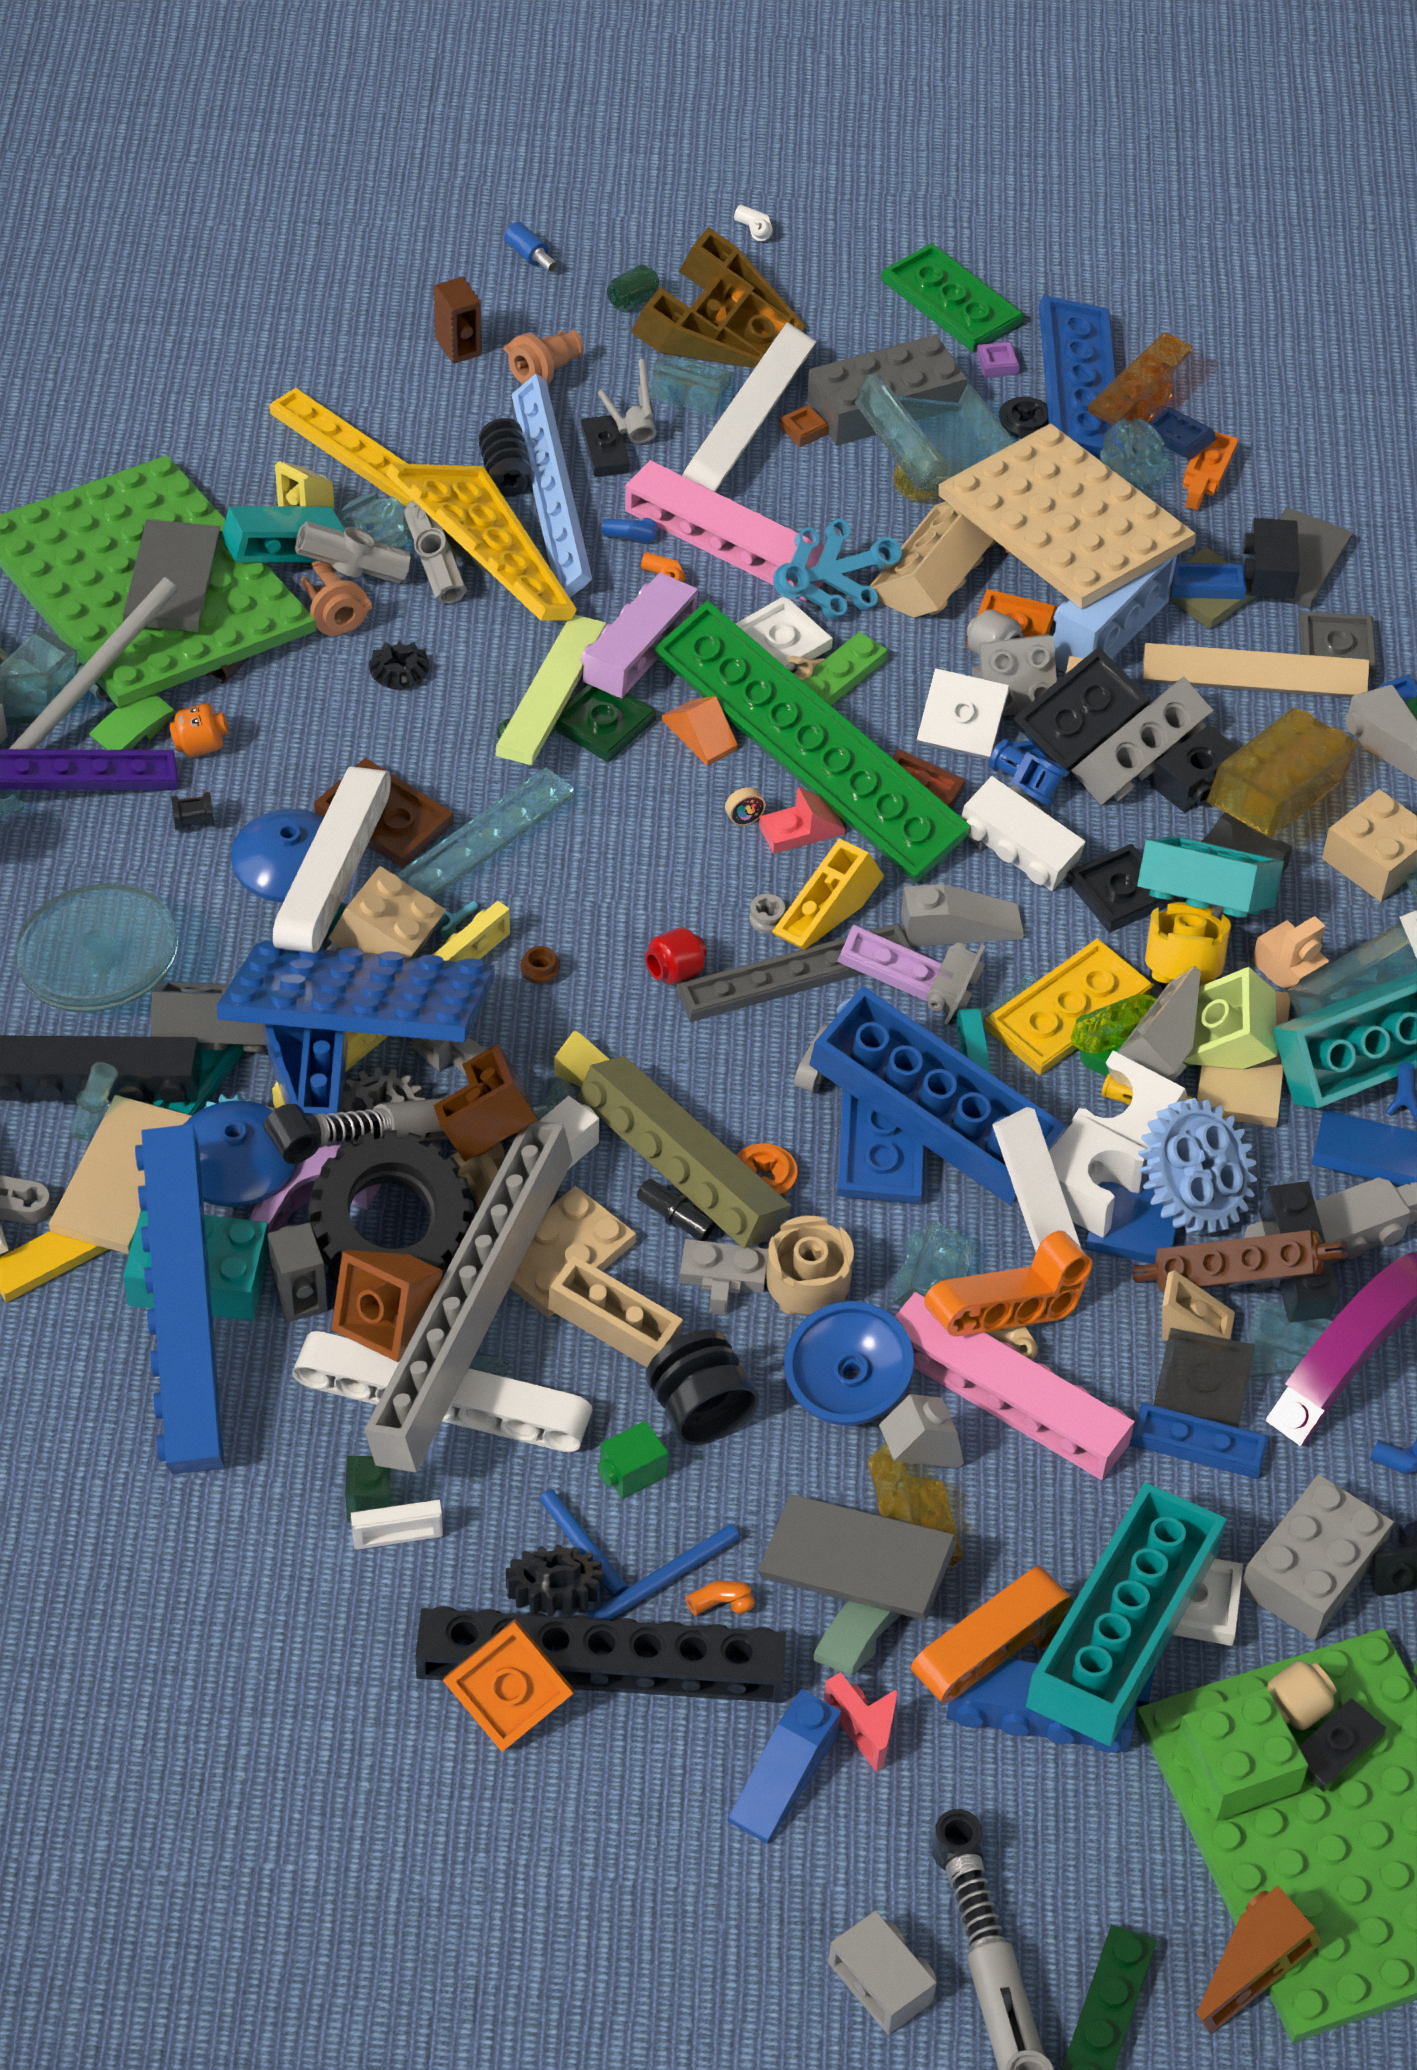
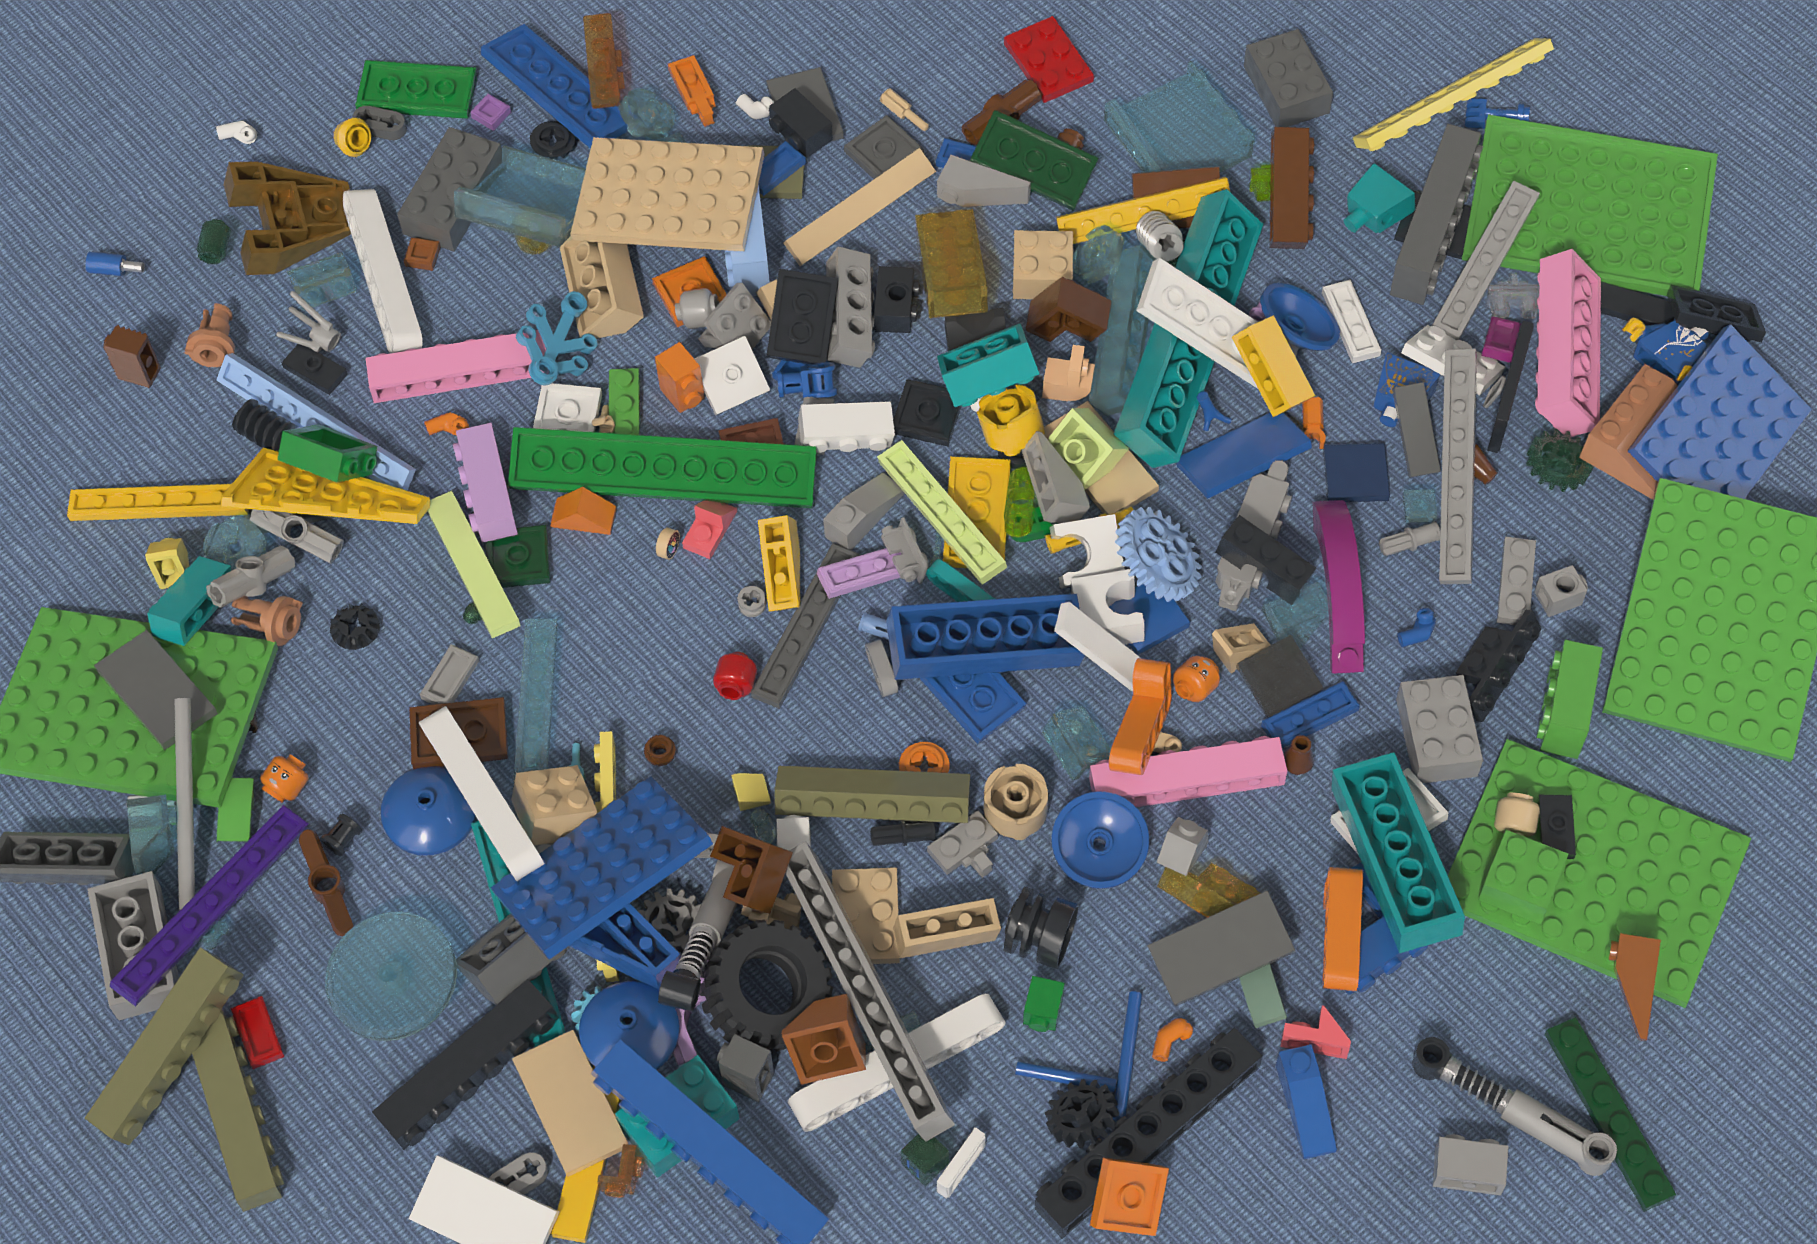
camera: 40 degrees left, 10 degrees up
(93, 1101) = (506, 1074): clear light blue axle -> none
(100, 1272) = (630, 1168): none -> clear orange bracket
(135, 826) = (320, 869): none -> reddish brown piece
(432, 765) = (449, 676): none -> light grey tile
(526, 505) = (327, 453): none -> green window
(636, 530) = (402, 411): blue arm -> none
(851, 299) = (352, 137): none -> yellow cone
(893, 297) = (381, 120): none -> dark grey beam
(910, 677) = (680, 377): none -> orange brick
(1028, 973) = (942, 512): none -> yellowish green plate
(1115, 1310) = (1196, 678): none -> orange head
(1140, 1460) = (1299, 756): none -> reddish brown cone
(1182, 433) = (658, 78): dark blue plate -> none
(1243, 1260) = (1245, 593): reddish brown plate -> none
(1245, 515) = (756, 109): none -> white arm
(1357, 895) = (1070, 309): none -> reddish brown brick
(1395, 620) = (901, 108): none -> tan axle

